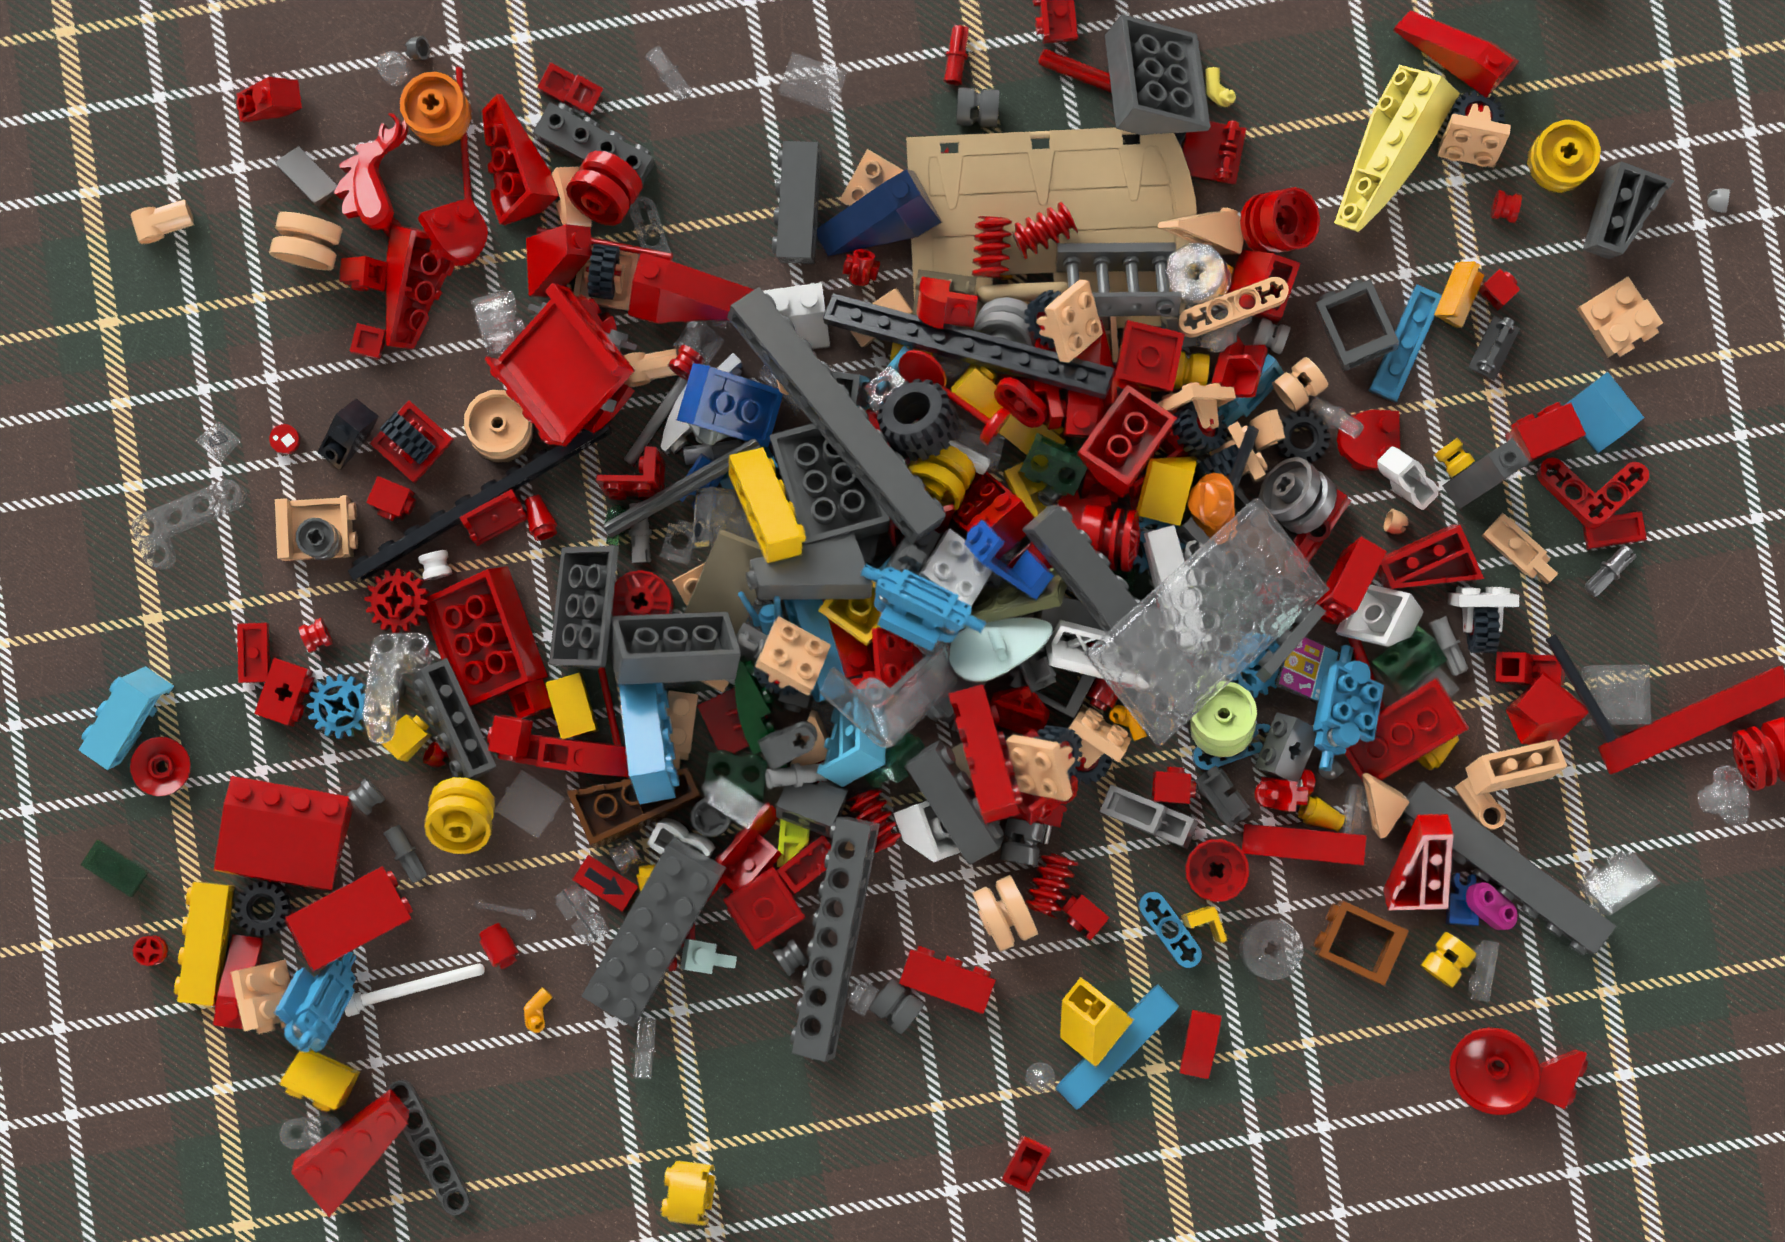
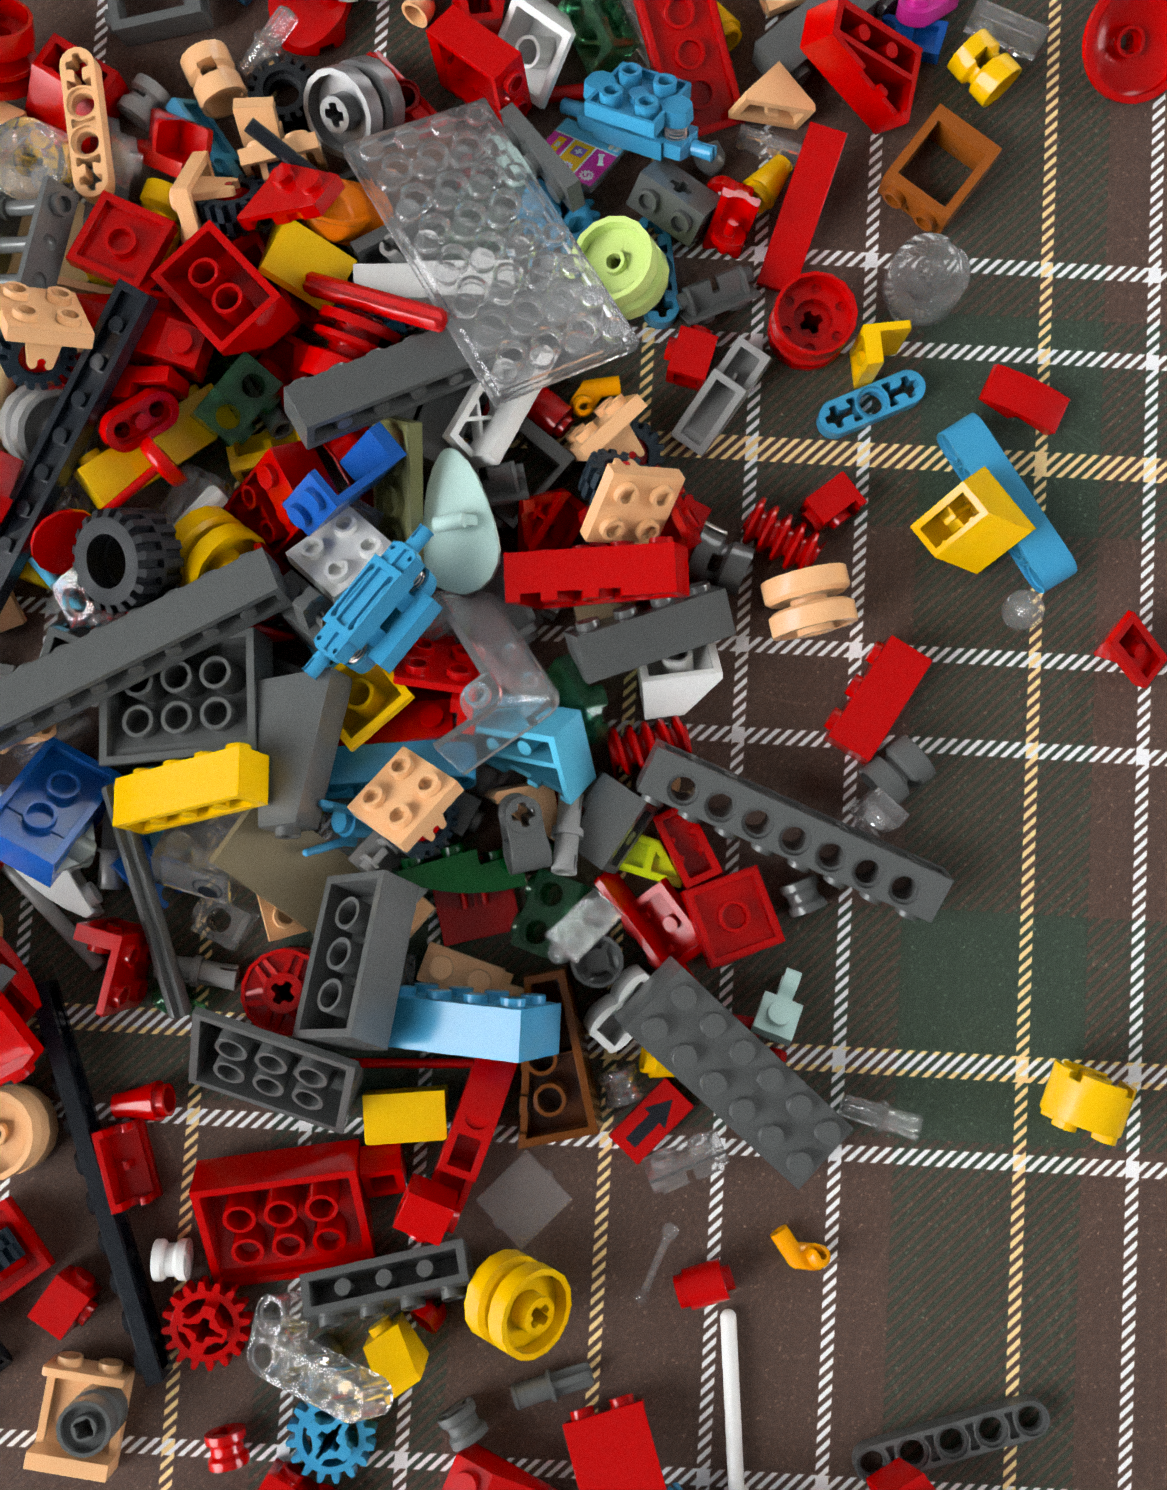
camera: 75 degrees left, 0 degrees up
(1144, 549) = (375, 301): none -> red axle
(1209, 471) = (291, 195): none -> red wing

